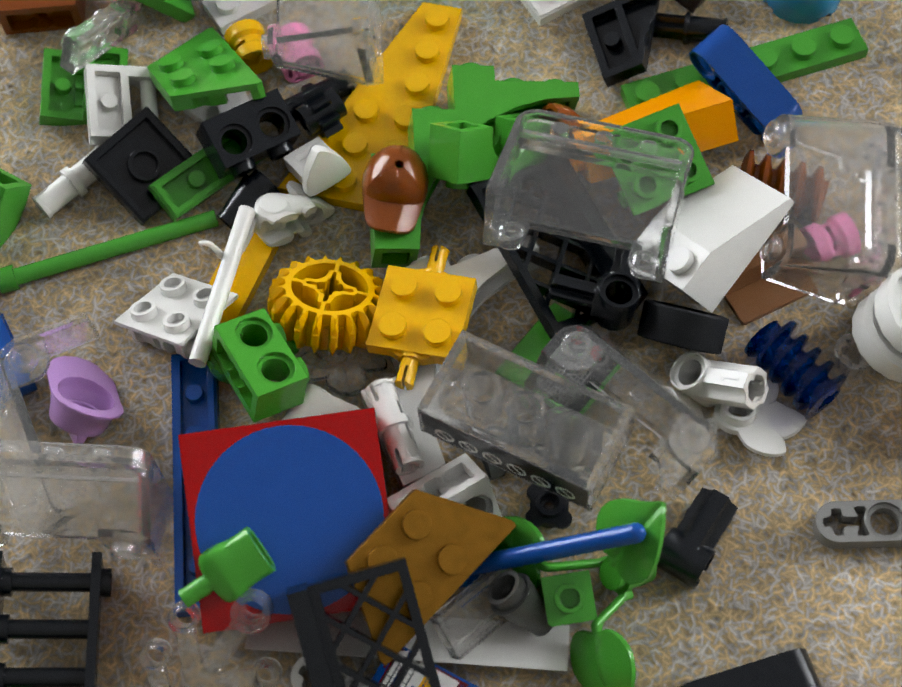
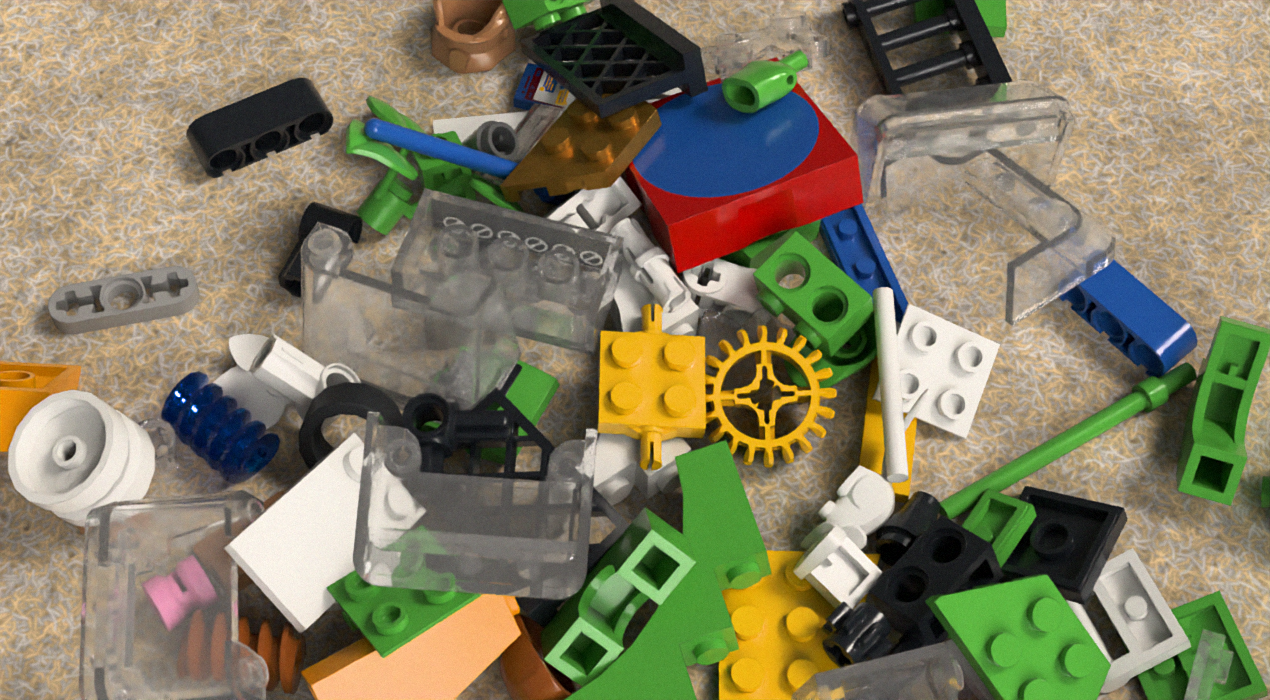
camera: 160 degrees right, 5 degrees down
(65, 188) = (1141, 511): white pin -> none
(81, 398) = (982, 252): lavender piece -> none
(394, 194) = (728, 527): dark orange cap -> none

